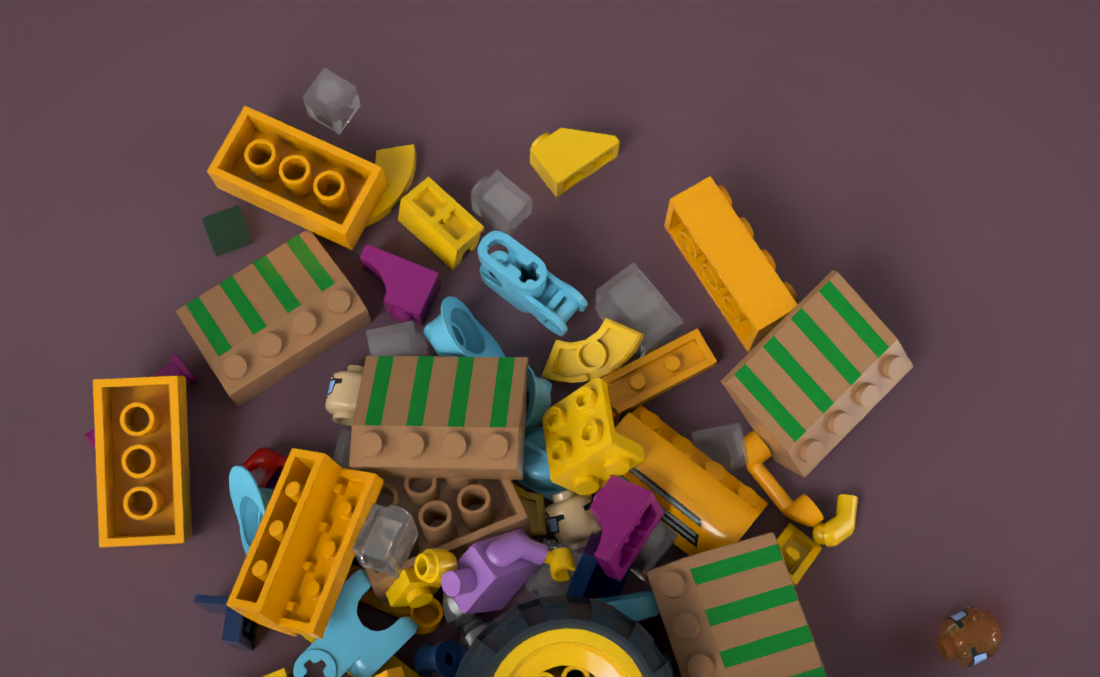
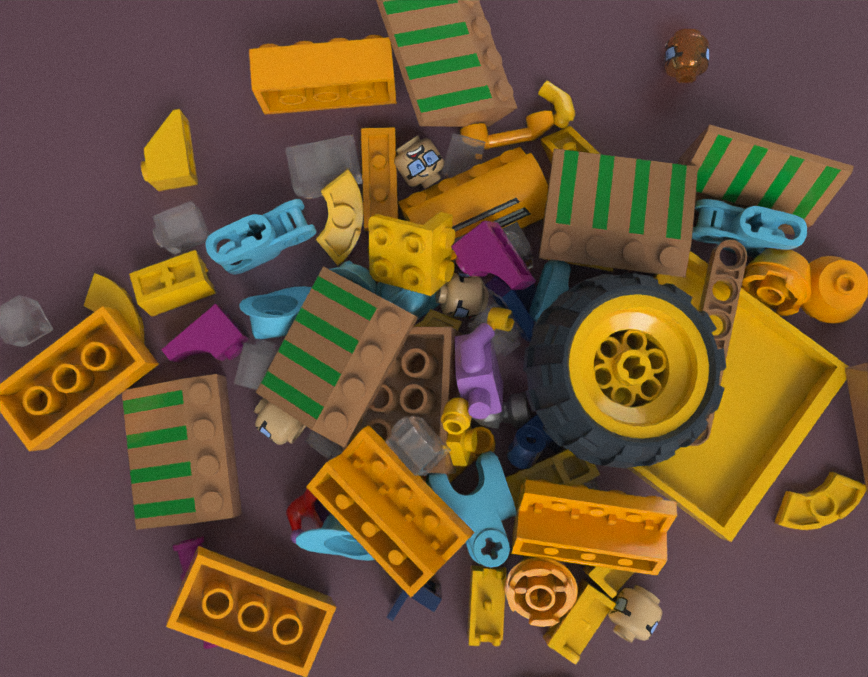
camera: 65 degrees left, 10 degrees up
(227, 230) = (89, 457): clear green tile -> none
(693, 405) = (419, 162): none -> tan head

